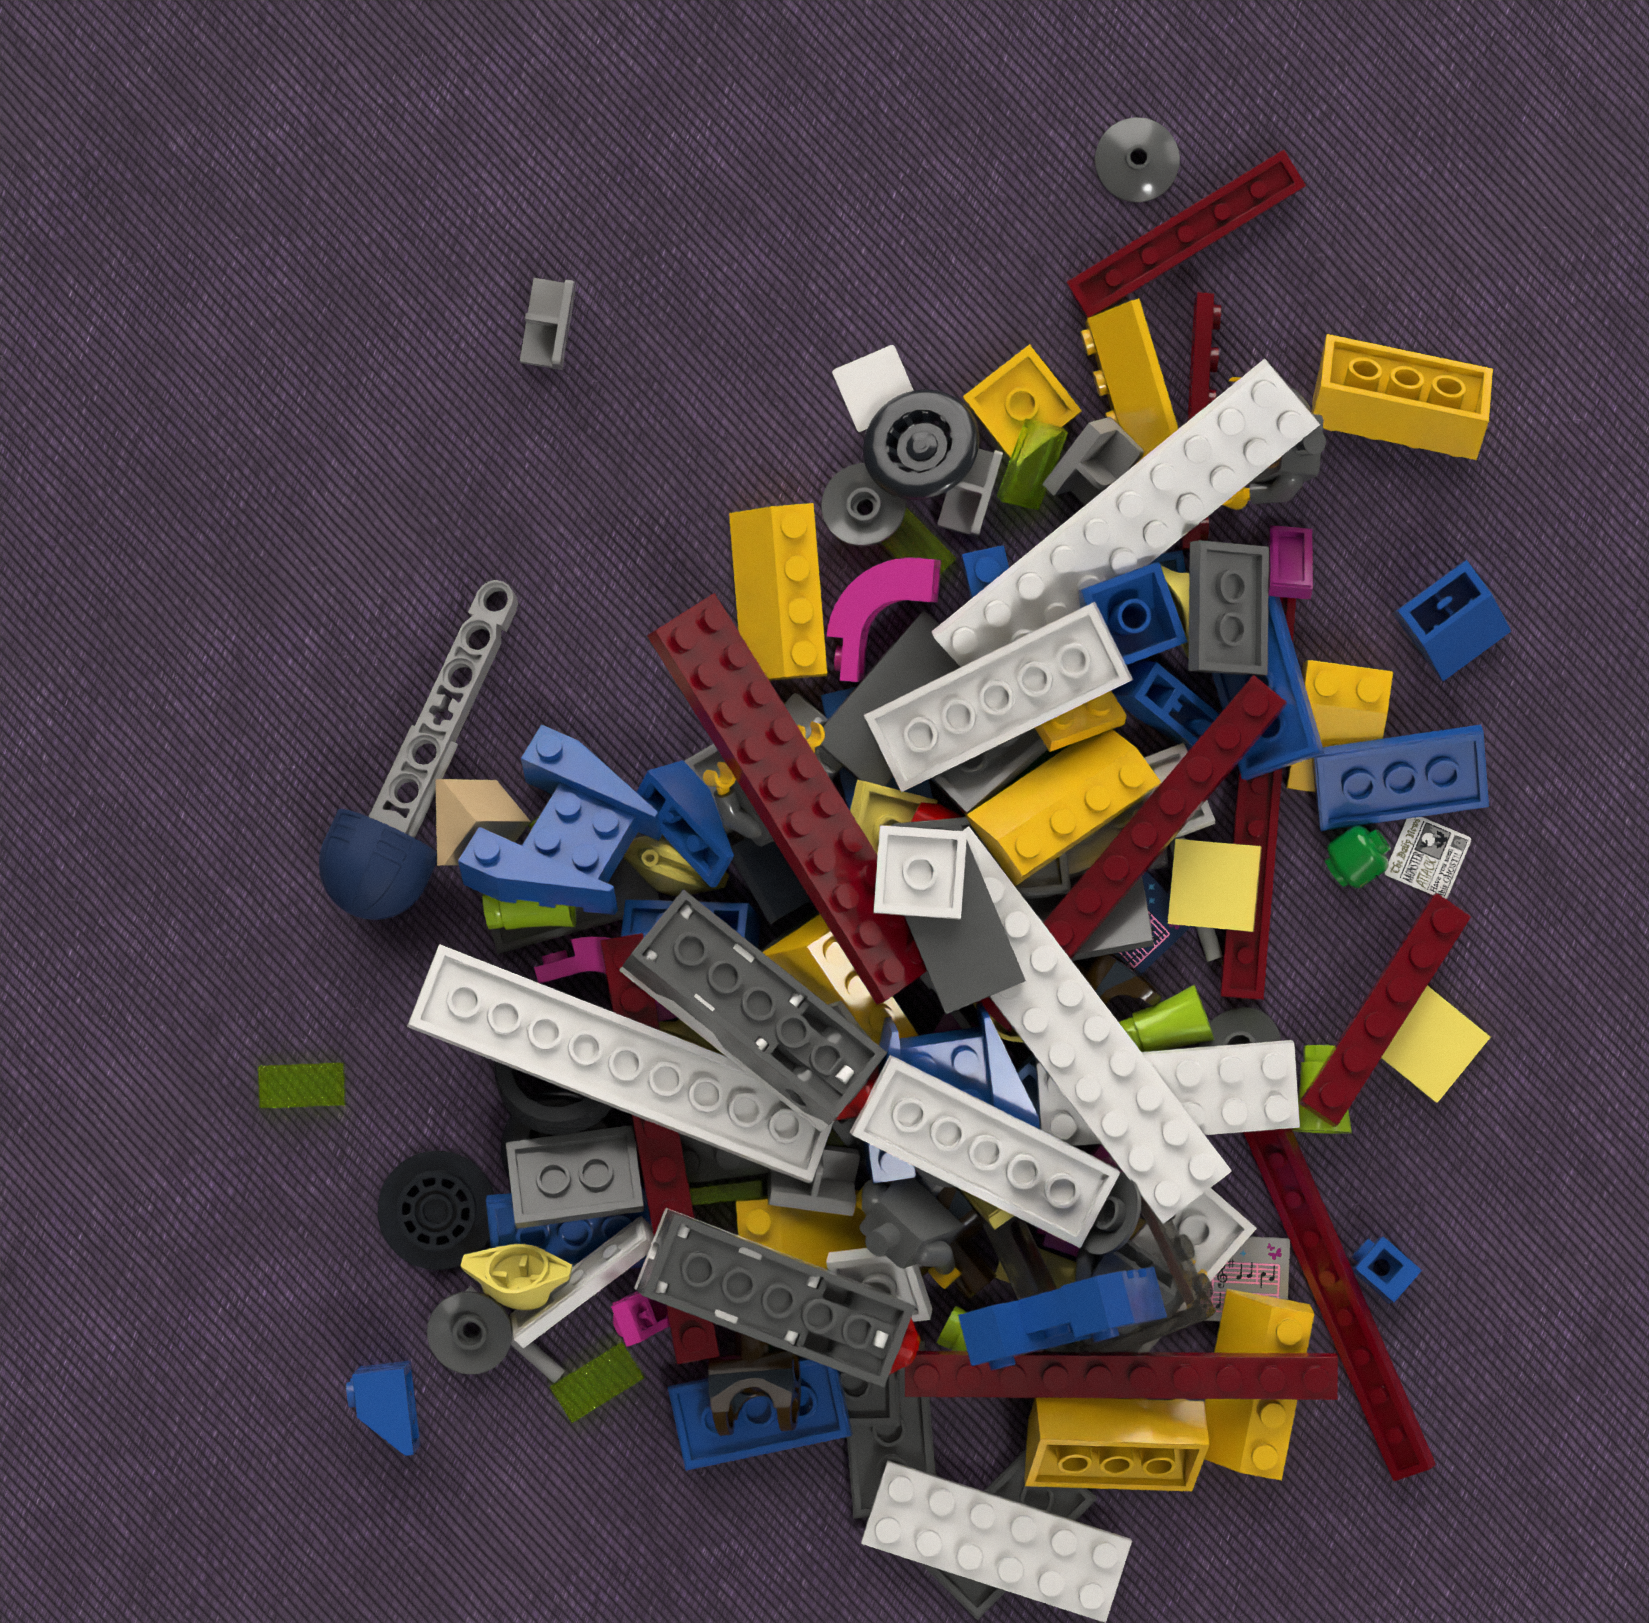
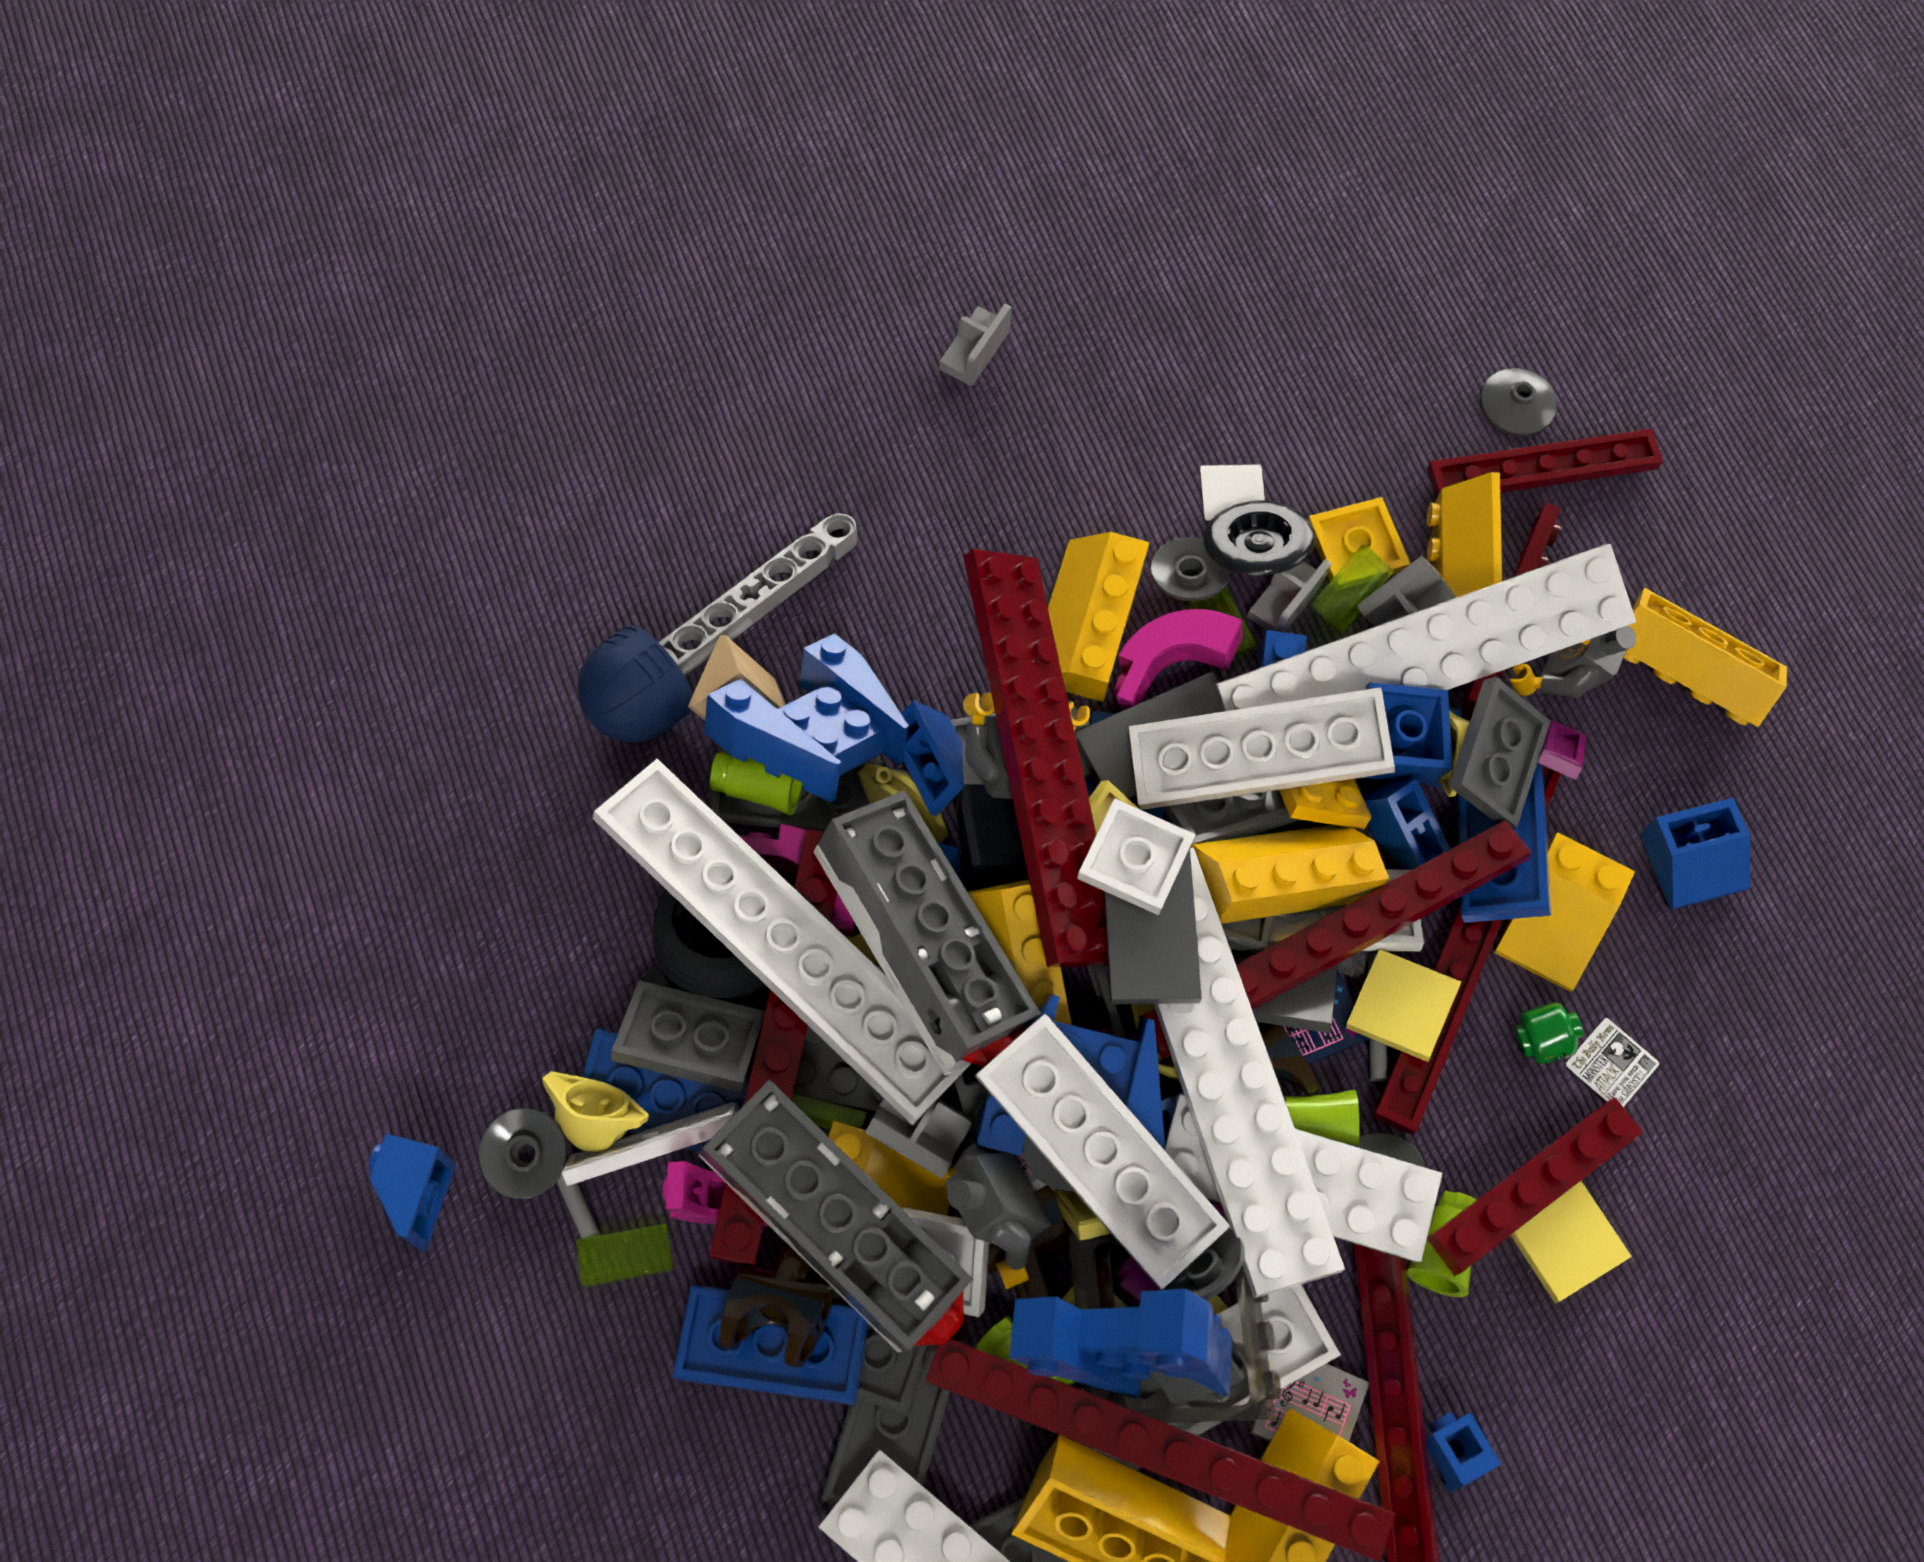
camera: 20 degrees right, 20 degrees down
(302, 1085) = (478, 869): clear neon green tile -> none
(435, 1209) = (544, 1026): black wheel -> none
(1401, 777) = (1611, 975): blue tile -> none

